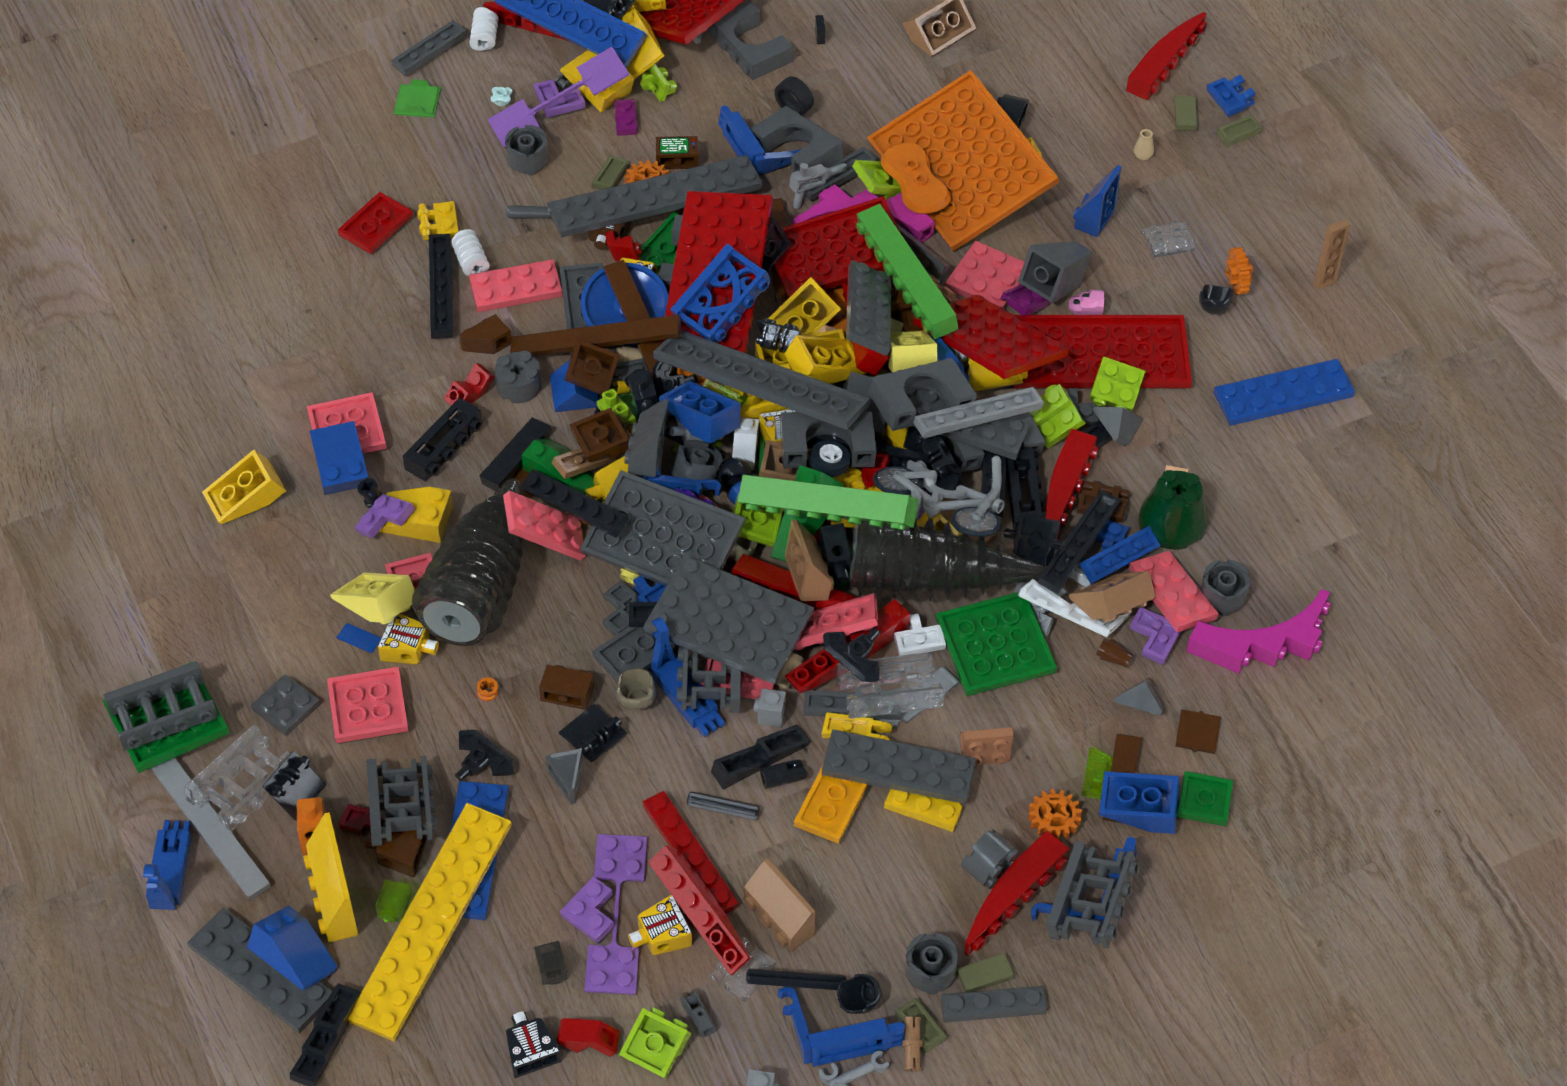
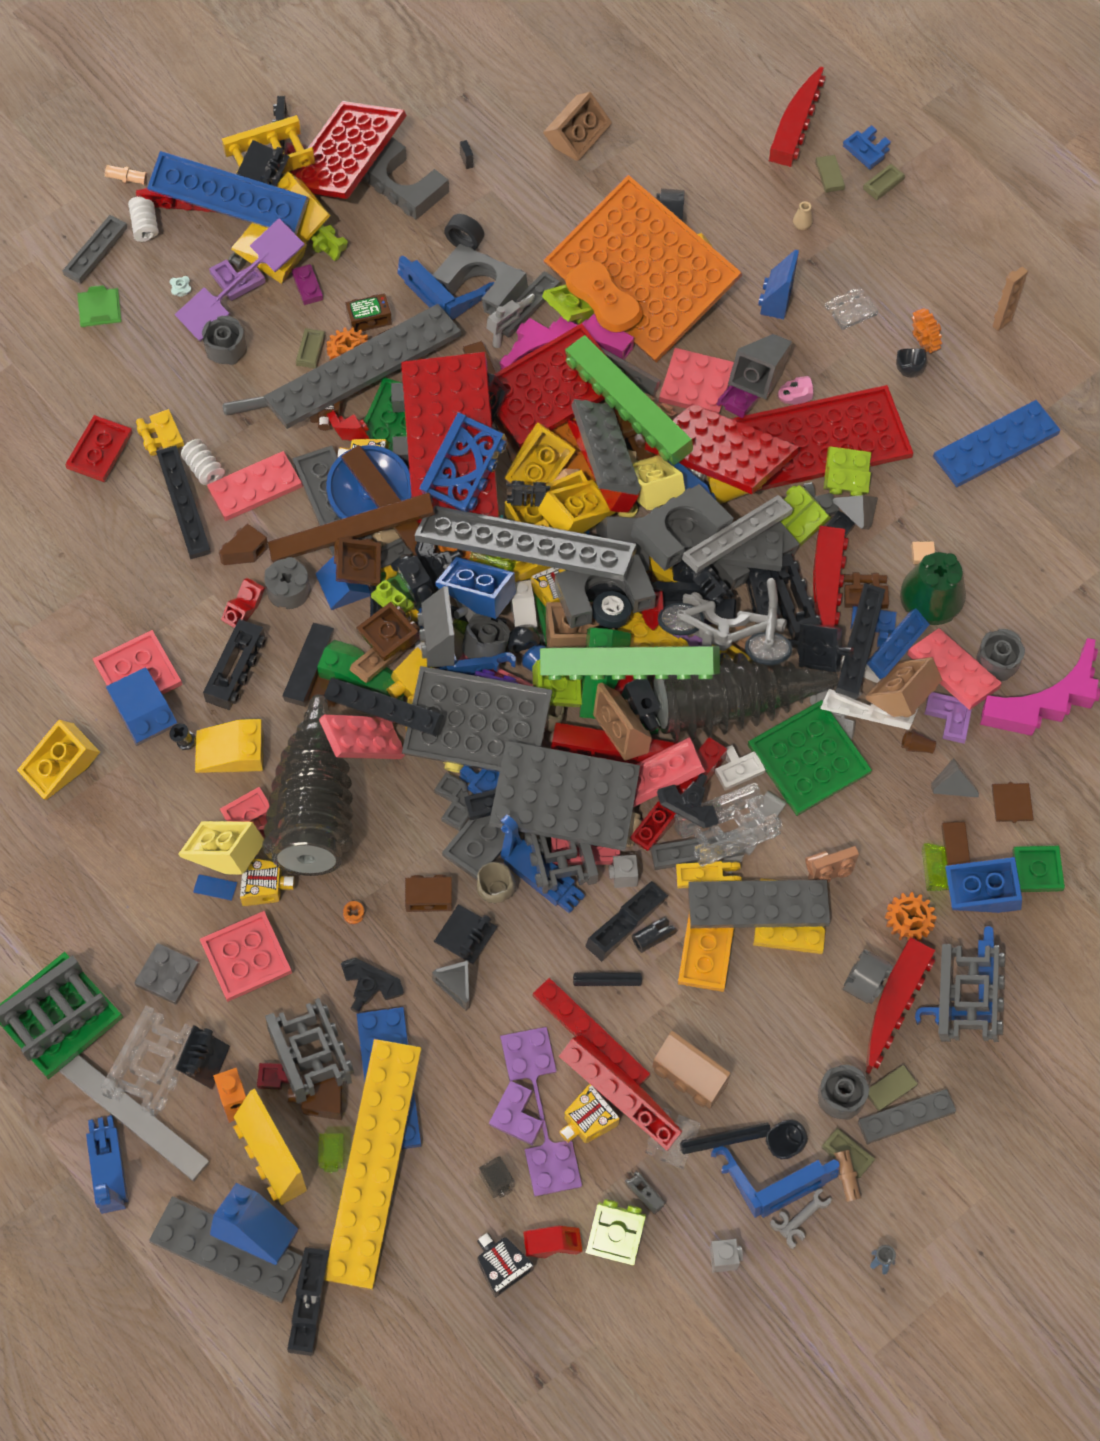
camera: 15 degrees left, 10 degrees up
(384, 510) = (200, 752): medium lavender plate -> none

